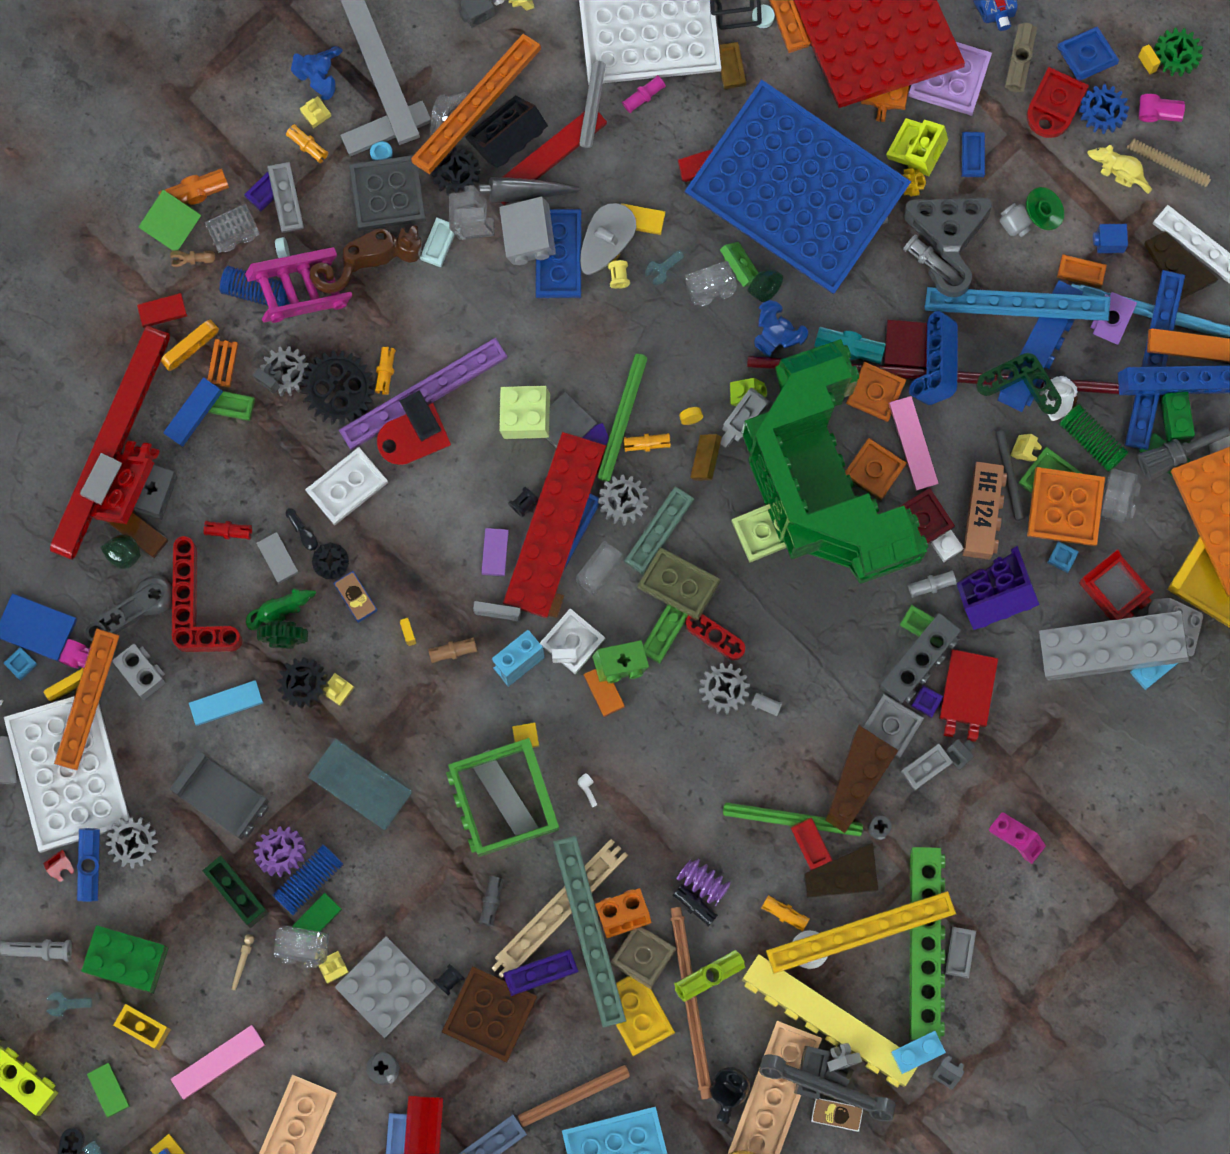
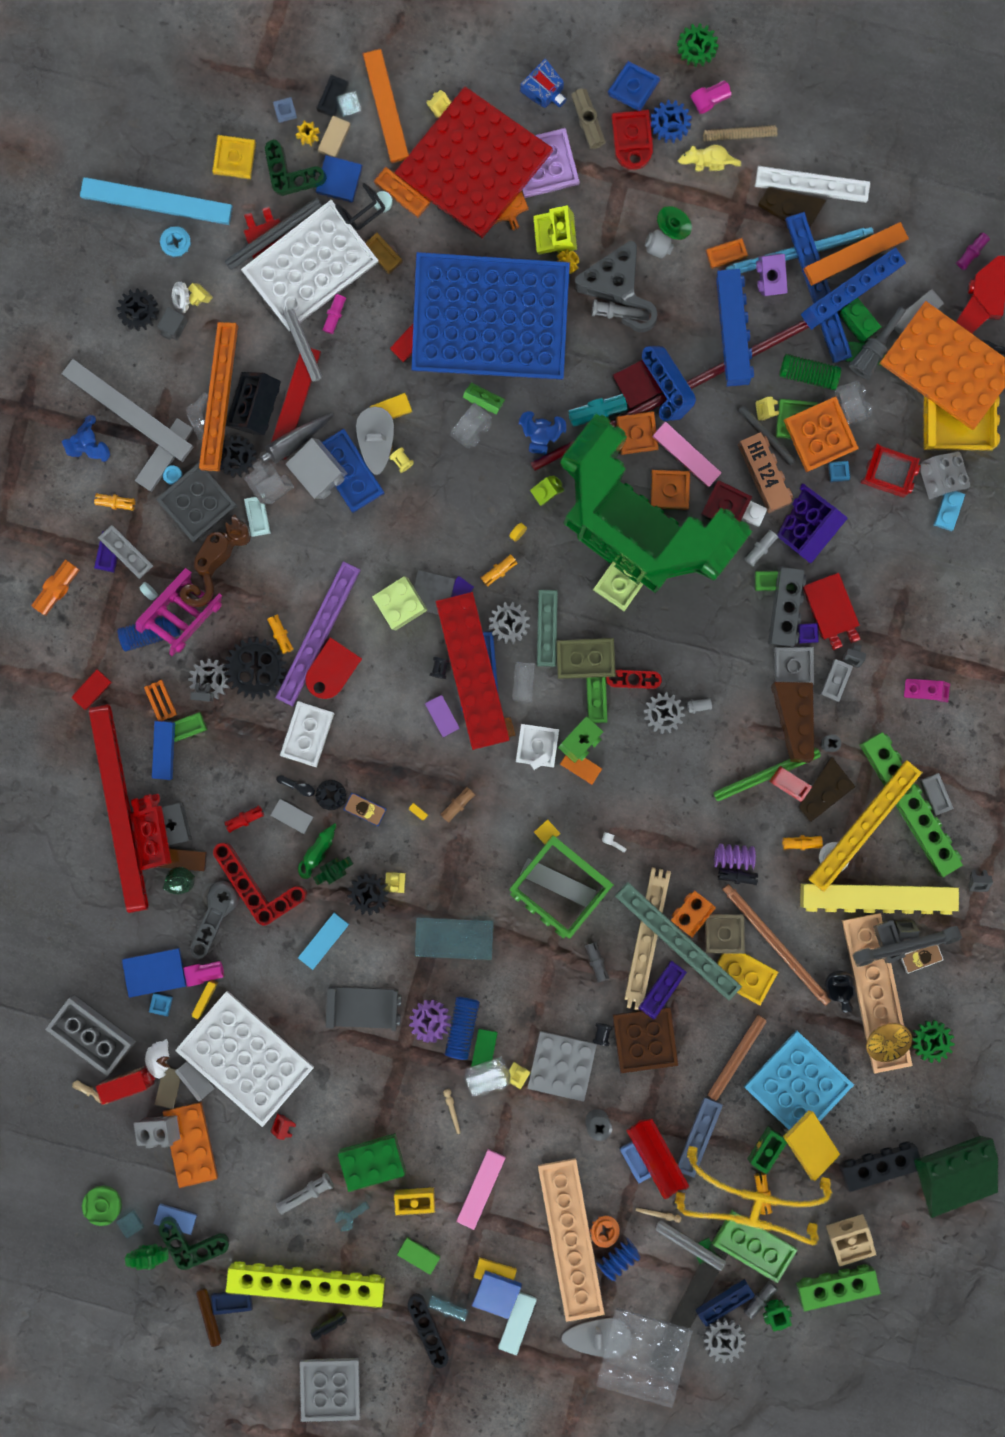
camera: 35 degrees left, 10 degrees up
(86, 699) = (225, 1003): orange tile -> none
(88, 849) = (298, 1105): blue piece -> none
(101, 478) = (131, 841): light grey tile -> none
(120, 838) = (331, 1078): light grey gear -> none
(136, 674) = (247, 963): light grey brick -> none
(169, 220) = (53, 621): bright green tile -> none
(189, 345) = (128, 703): light orange beam -> none
(192, 257) = (98, 630): medium nougat piece -> none
(232, 228) = (102, 599): clear brick -> none
(235, 891) = (418, 1068): dark green brick -> none
(315, 112) = (105, 474): light yellow tile -> none
(420, 415) = (327, 652): black tile -> none
(497, 611) = (471, 757): light grey tile -> none
(518, 658) = (509, 783): medium azure panel -> none
(622, 417) = (470, 563): bright green axle -> none
(663, 267) = (429, 434): clear light blue bar -> none
(698, 982) = (774, 930): lime piece -> none
(706, 457) = (547, 555): pearl gold tile -> none
(749, 407) = (557, 510): light grey hinge -> none
(765, 285) = (511, 403): clear green hat -> none
(844, 1059) = (907, 920): light grey tile -> none
(918, 1052) = (954, 883): medium azure plate -> none
(973, 154) = (597, 213): blue tile -> none
(1021, 304) = (702, 305): dark azure tile -> none
(1027, 375) = (740, 356): dark green beam -> none
(1068, 394) = (768, 358): white hair -> none
(1111, 238) = (734, 216): blue brick -> none
(1114, 646) = (917, 514): light grey brick -> none
(1149, 59) = (680, 63): yellow tile -> none

